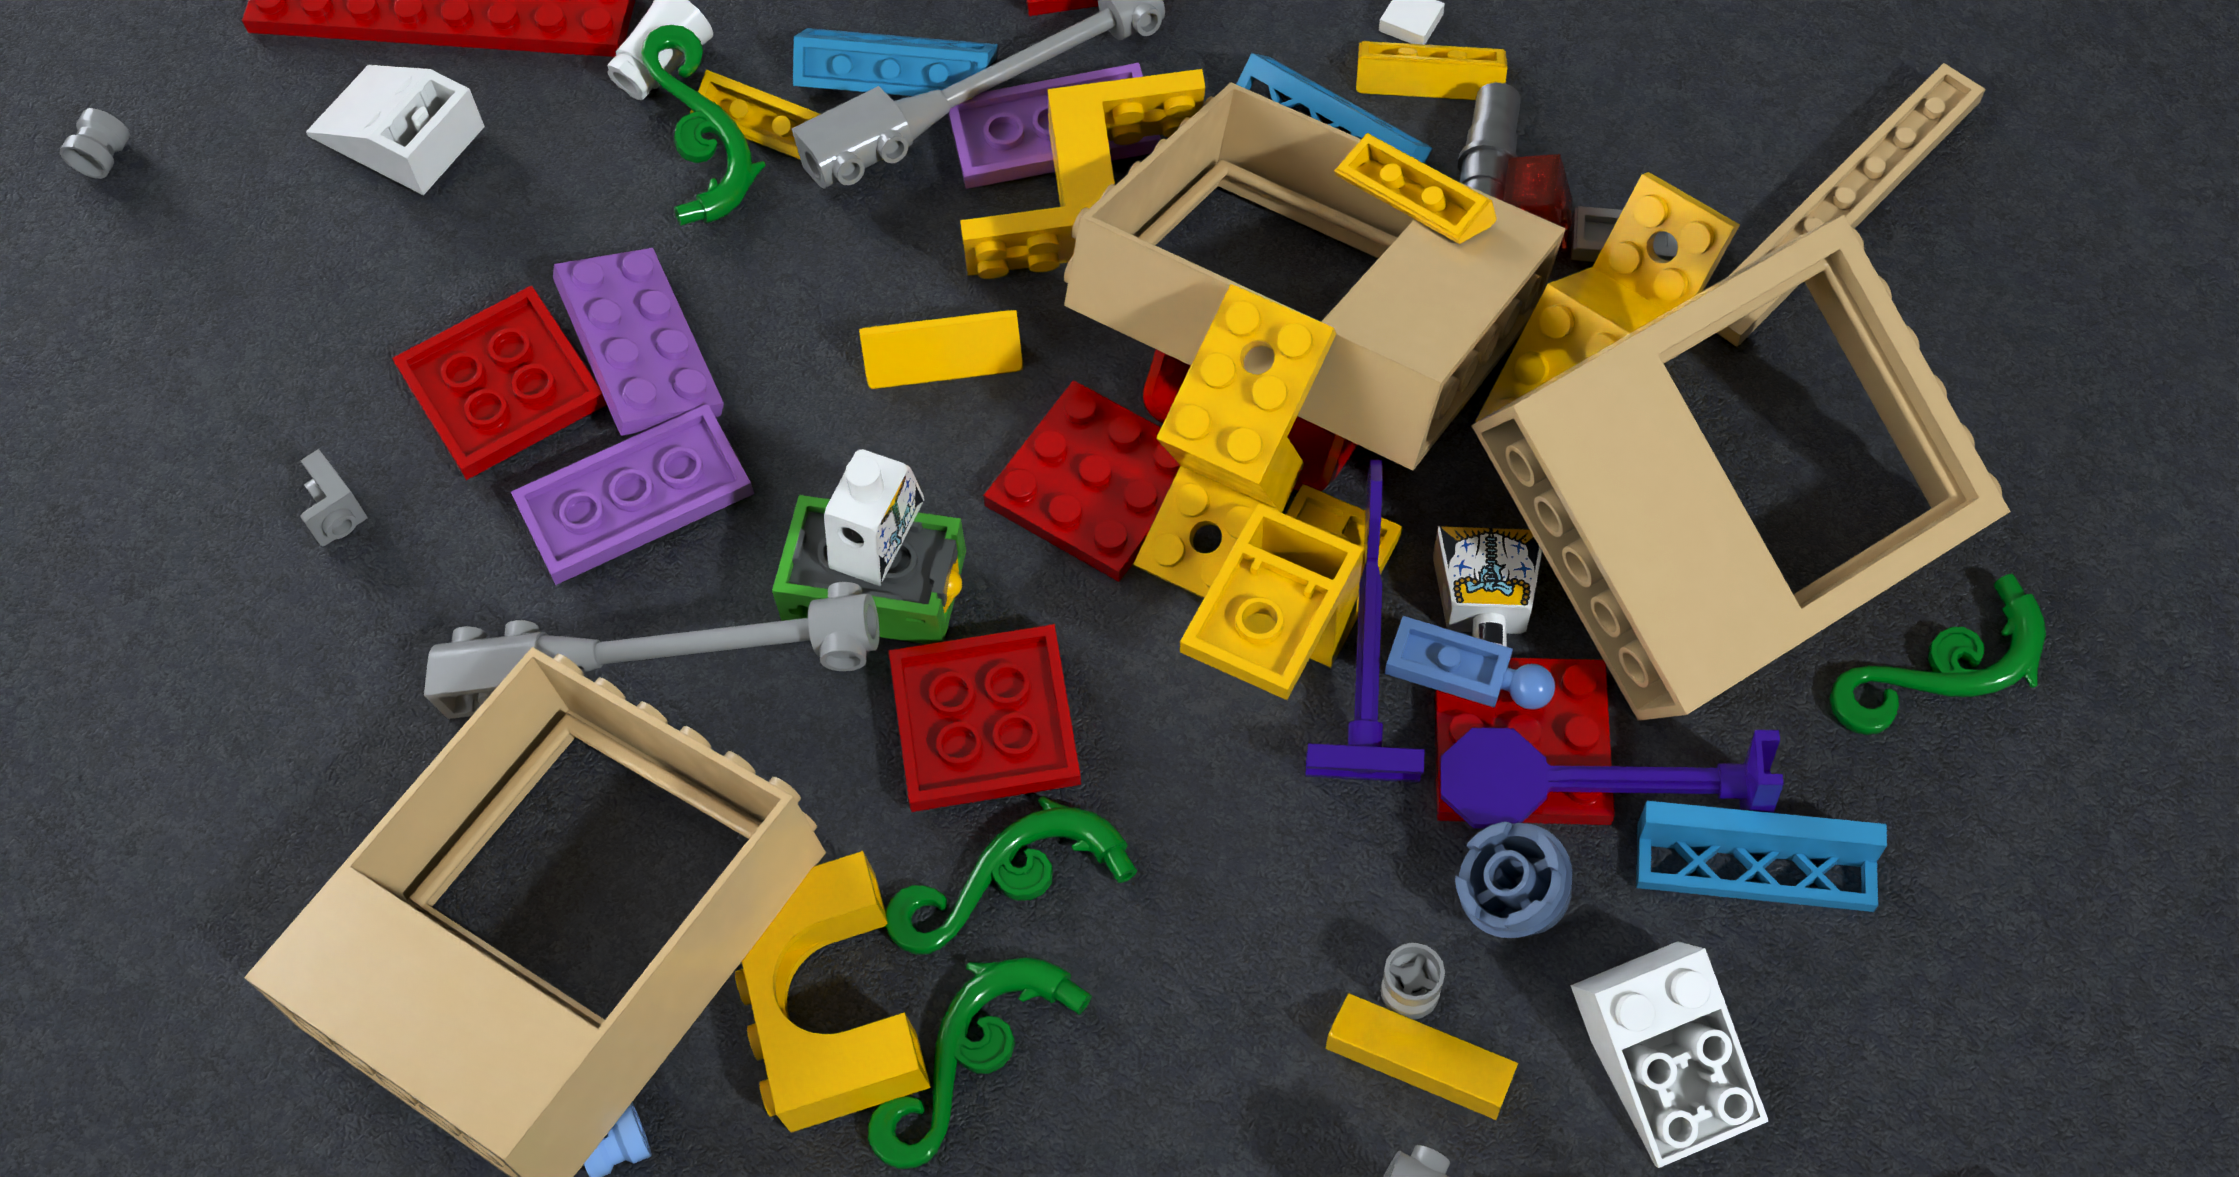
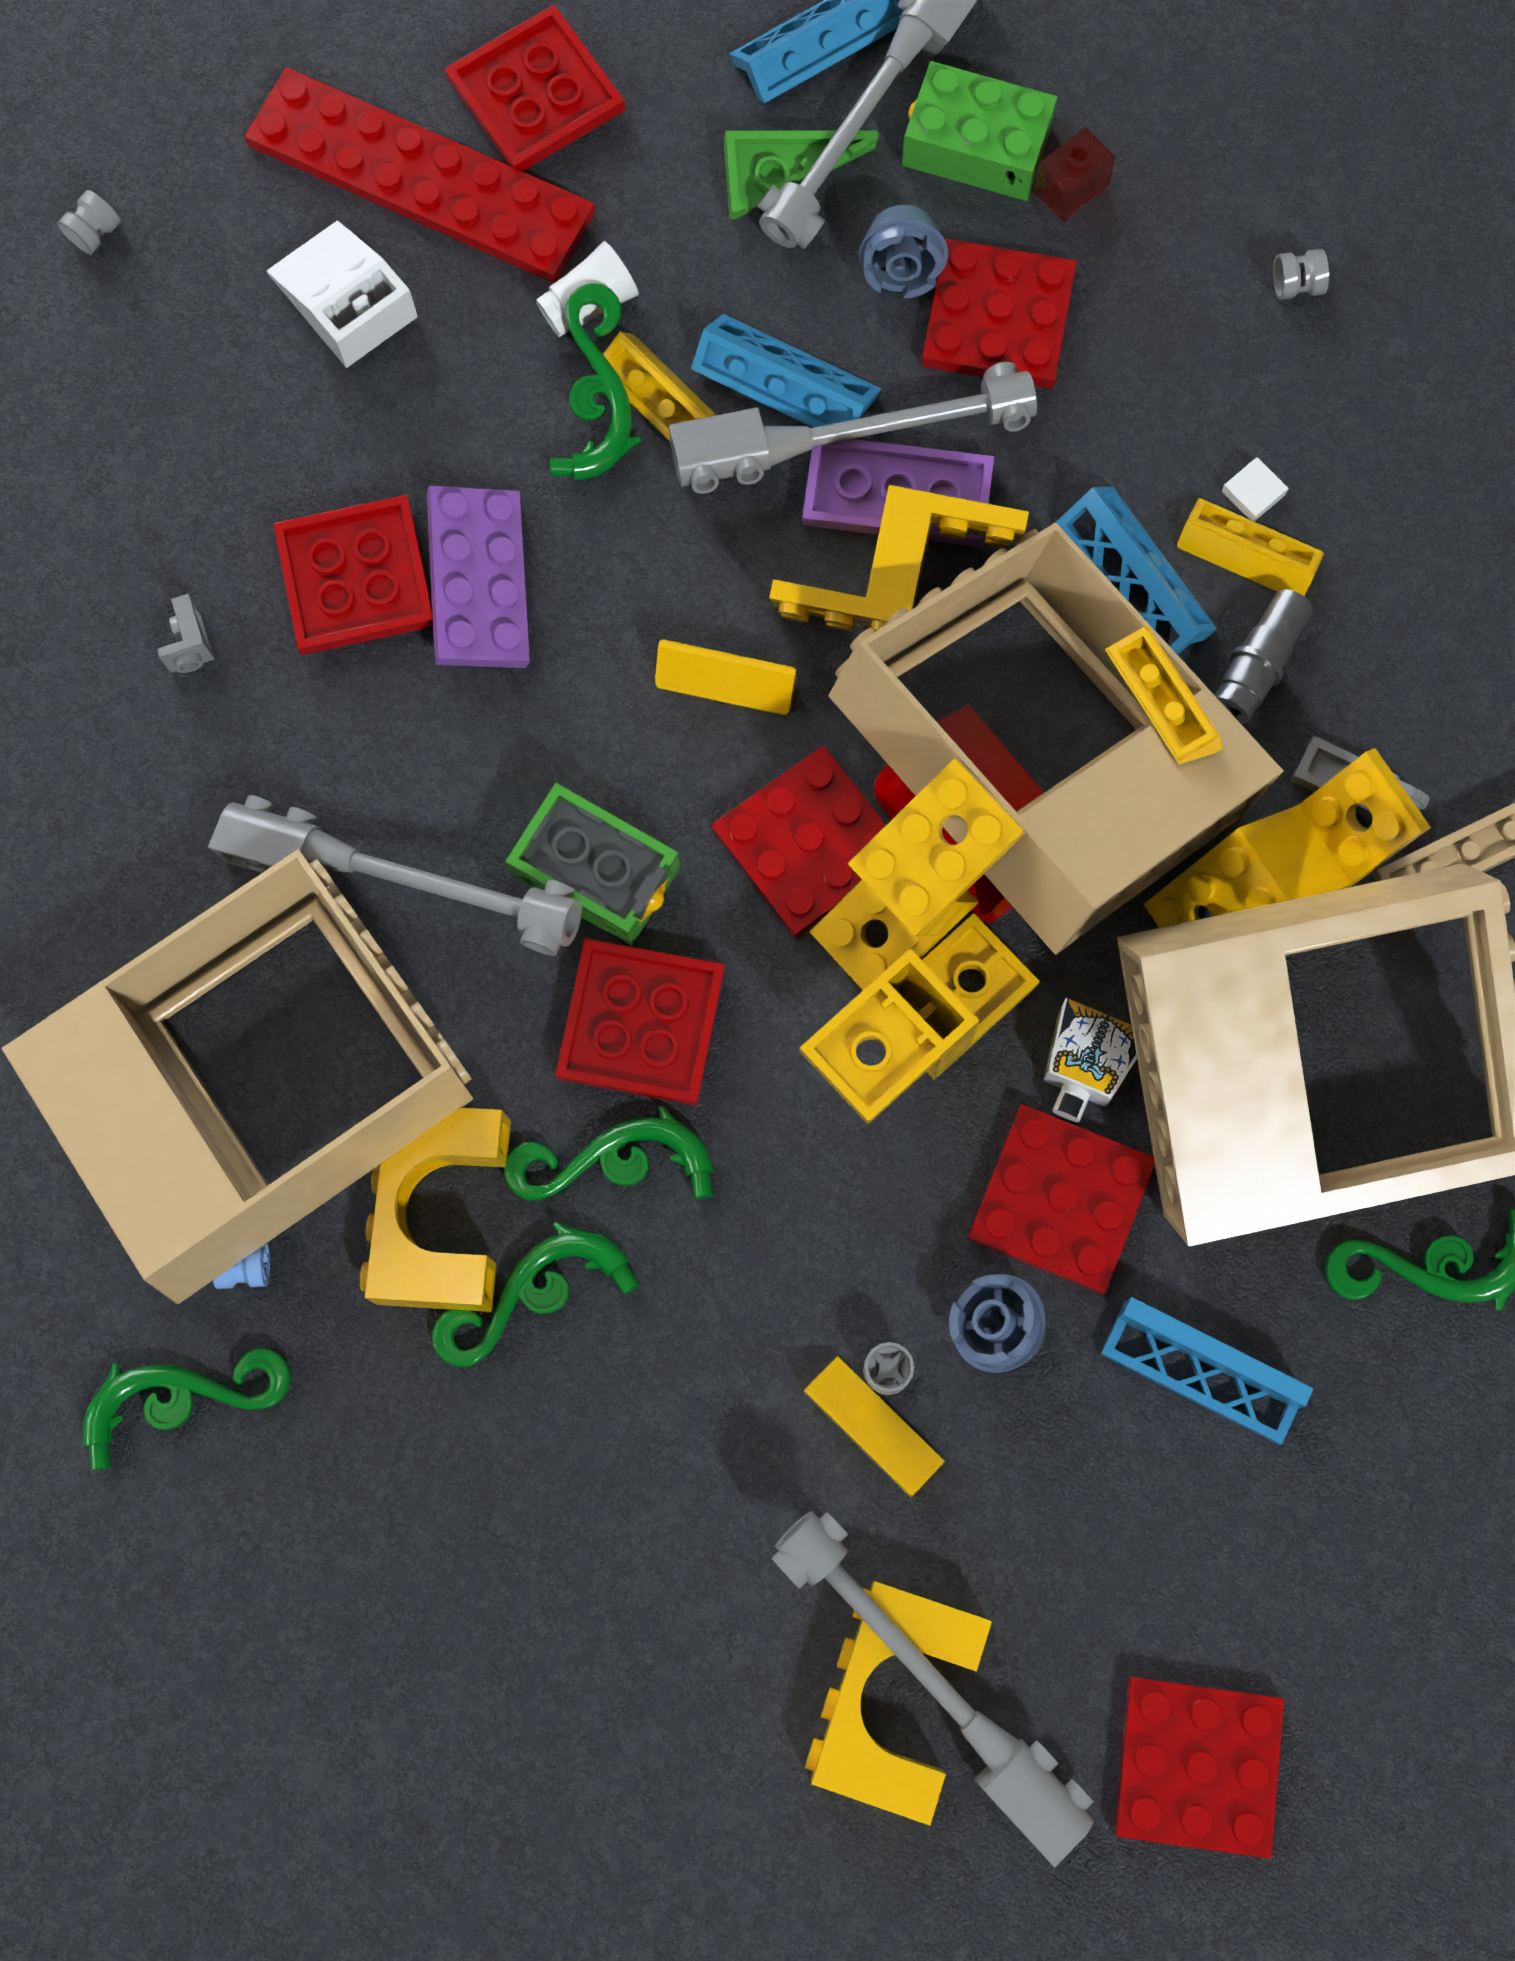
camera: 20 degrees right, 15 degrees up
(632, 493) = (429, 718): medium lavender plate -> none
(871, 504) = (603, 831): white torso -> none
(1364, 754) = (928, 1166): dark purple piece -> none
(1465, 666) = (1035, 1128): medium blue plate -> none
(1504, 778) = (1025, 1231): dark purple piece -> none
(1541, 189) = (1282, 721): clear red head -> none
(1671, 1051) = (1064, 1498): white slope -> none

